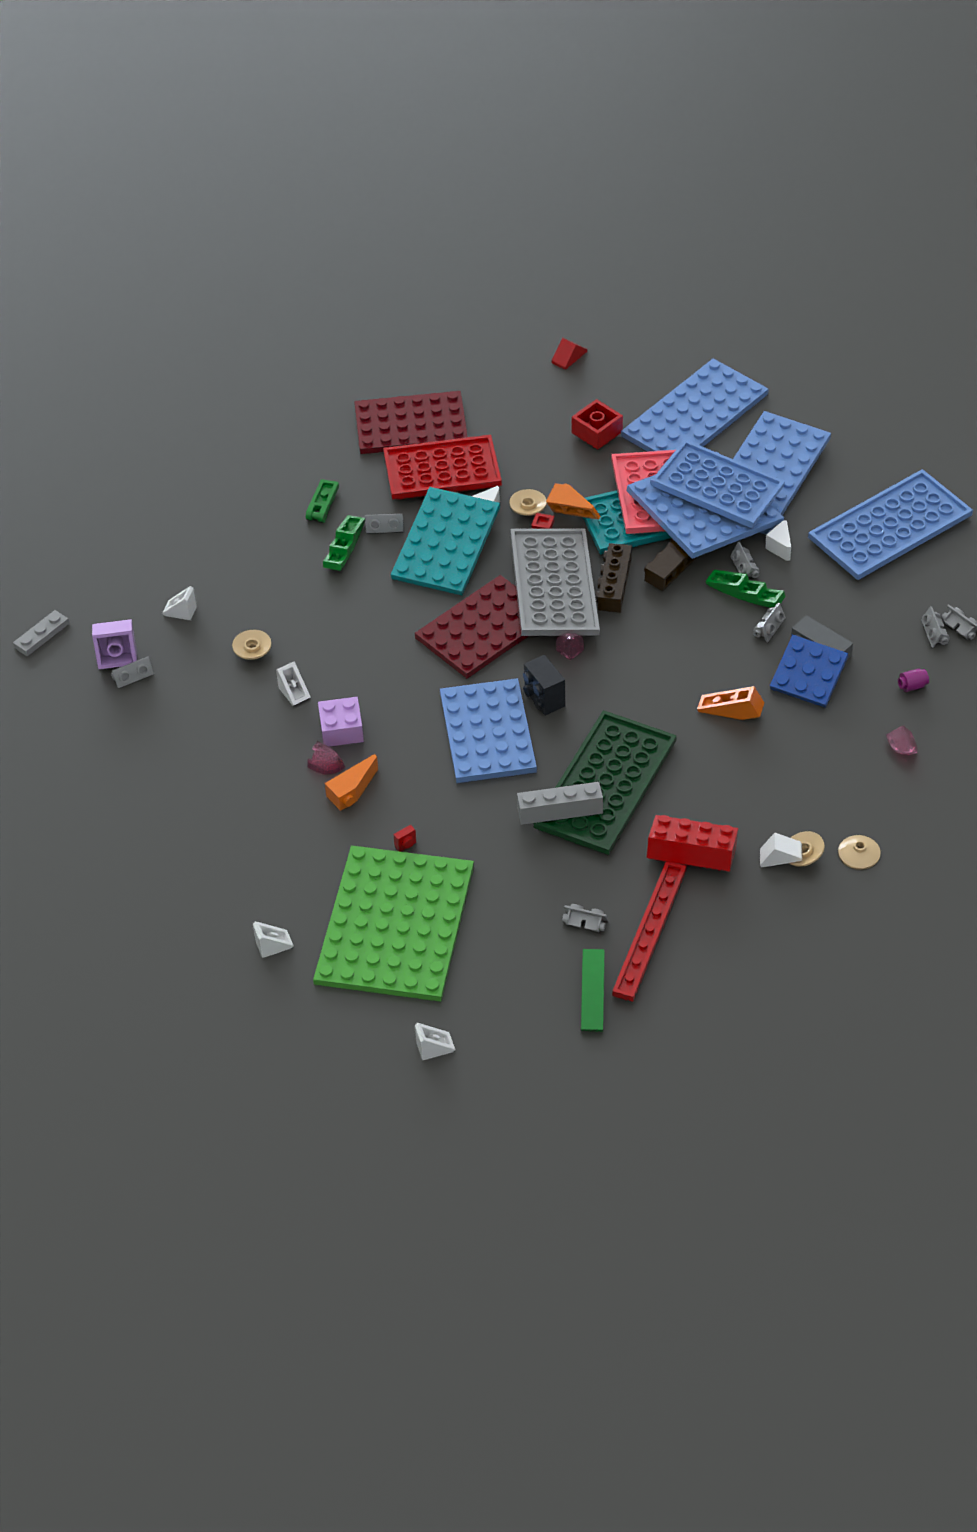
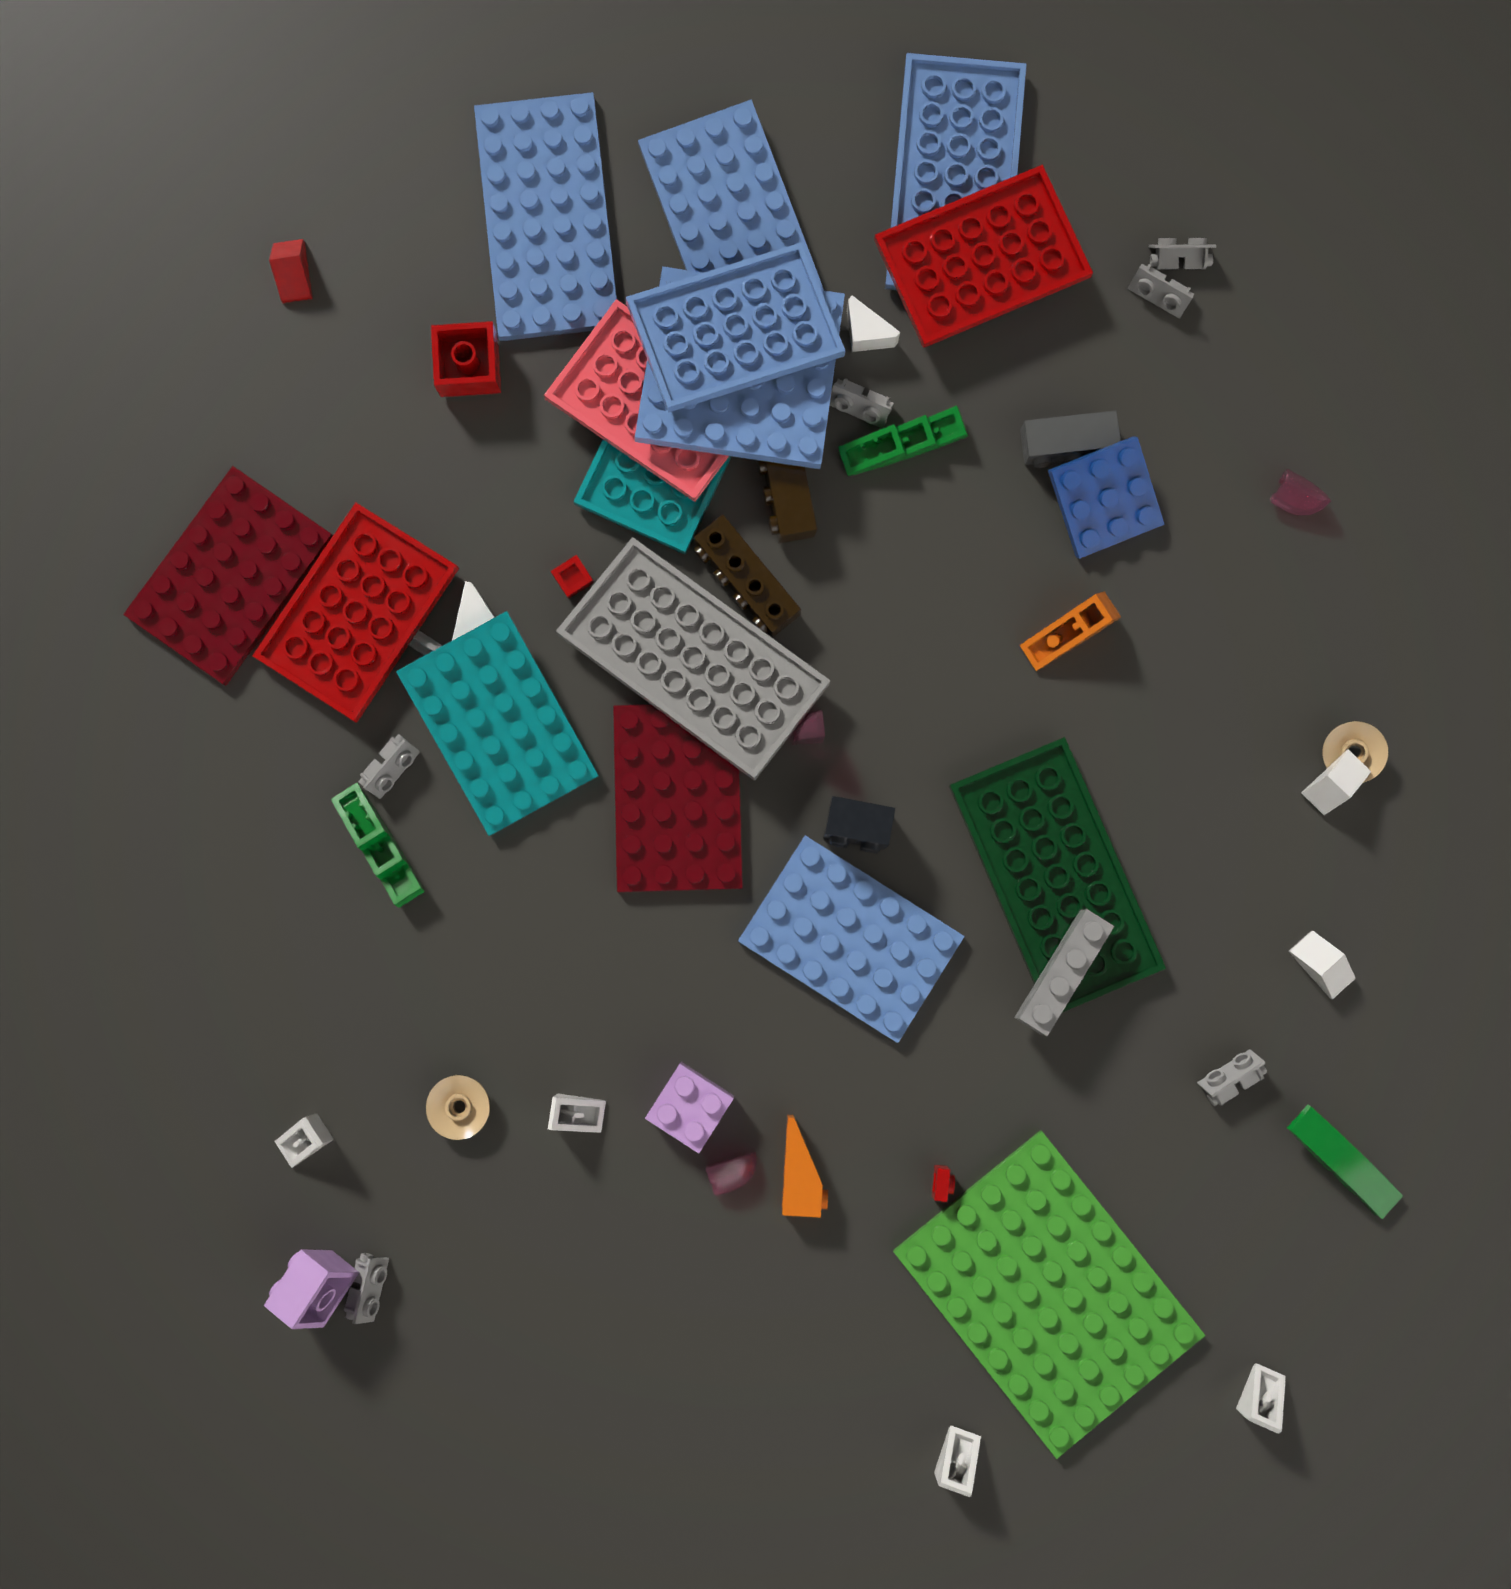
camera: 50 degrees left, 35 degrees up
(41, 633) = (187, 1347): light grey plate -> none
(322, 500) = (274, 808): green plate -> none
(527, 502) = (513, 552): tan dish -> none
(568, 501) = (575, 516): orange slope -> none
(649, 931) = (1314, 1023): red plate -> none
(684, 917) = (1323, 963): none -> white slope
(692, 842) = (1246, 870): red brick -> none
(770, 623) = (979, 453): light grey hinge -> none
(859, 852) = (1384, 691): tan dish -> none
(863, 550) = (983, 256): none -> red plate
(913, 679) = (1219, 392): magenta brick -> none

